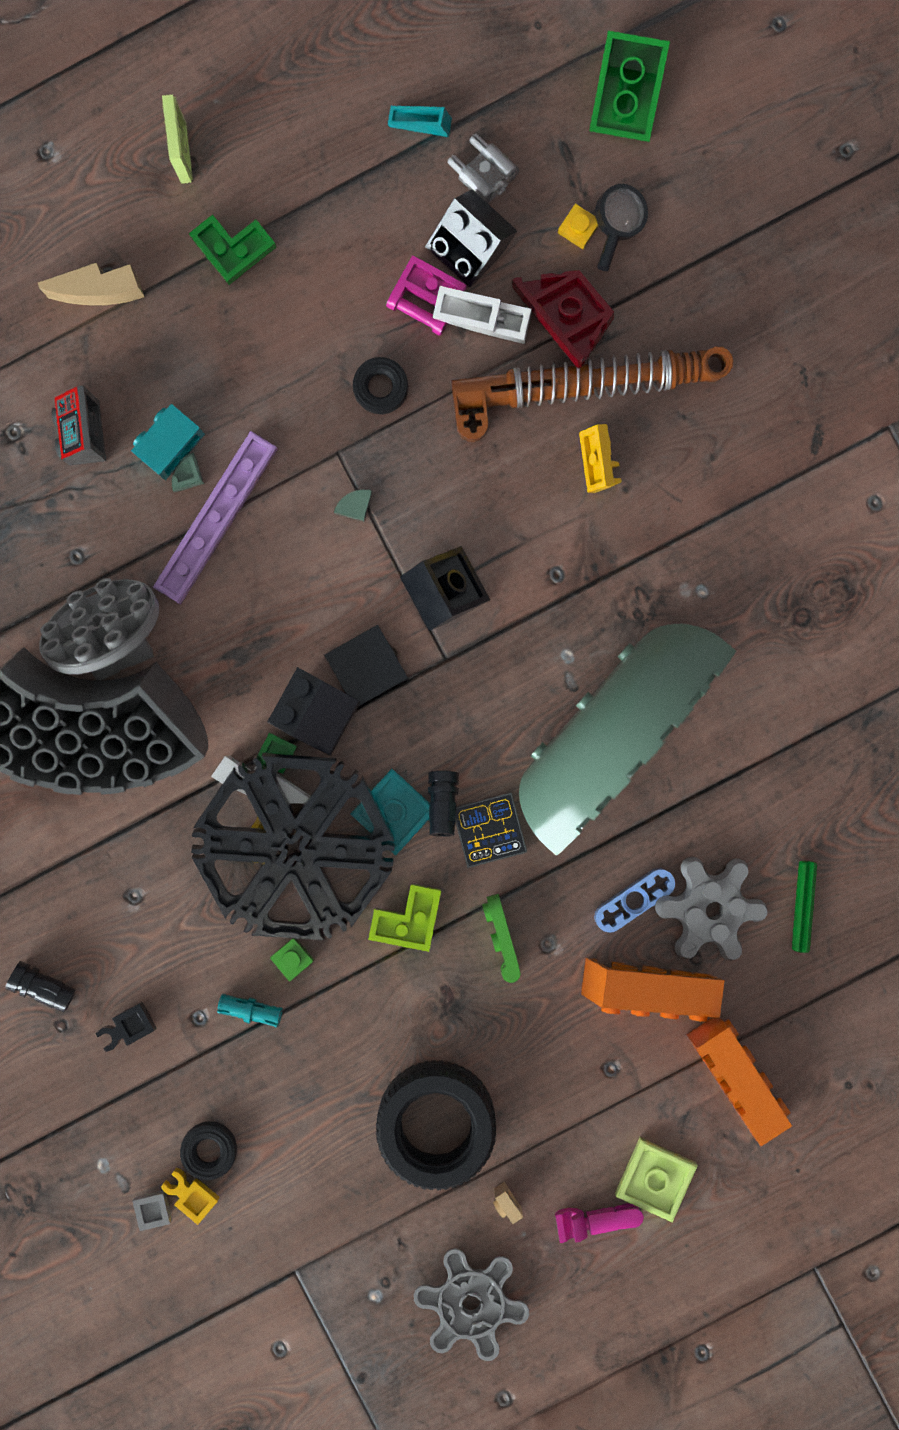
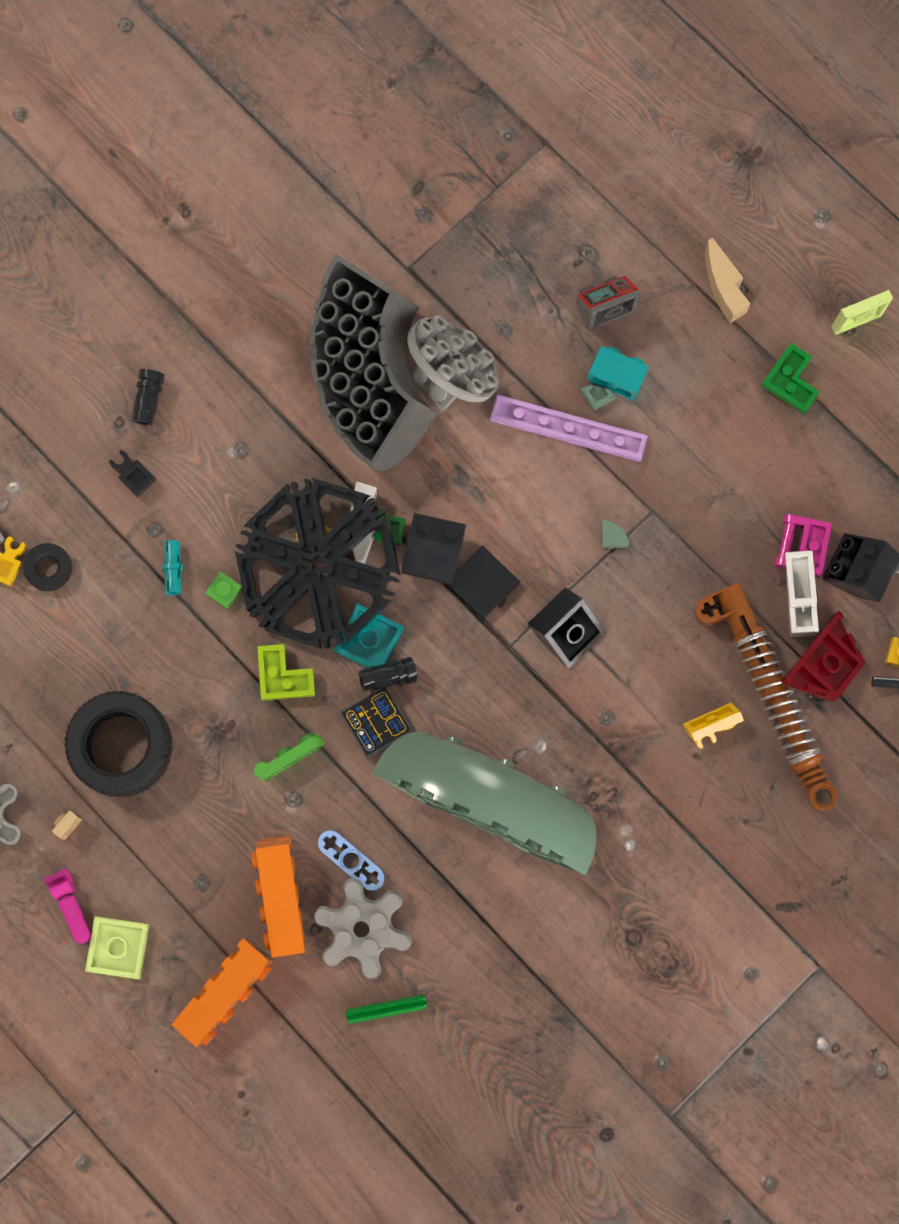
camera: 70 degrees right, 10 degrees down
(386, 367) = (722, 513): black tyre -> none

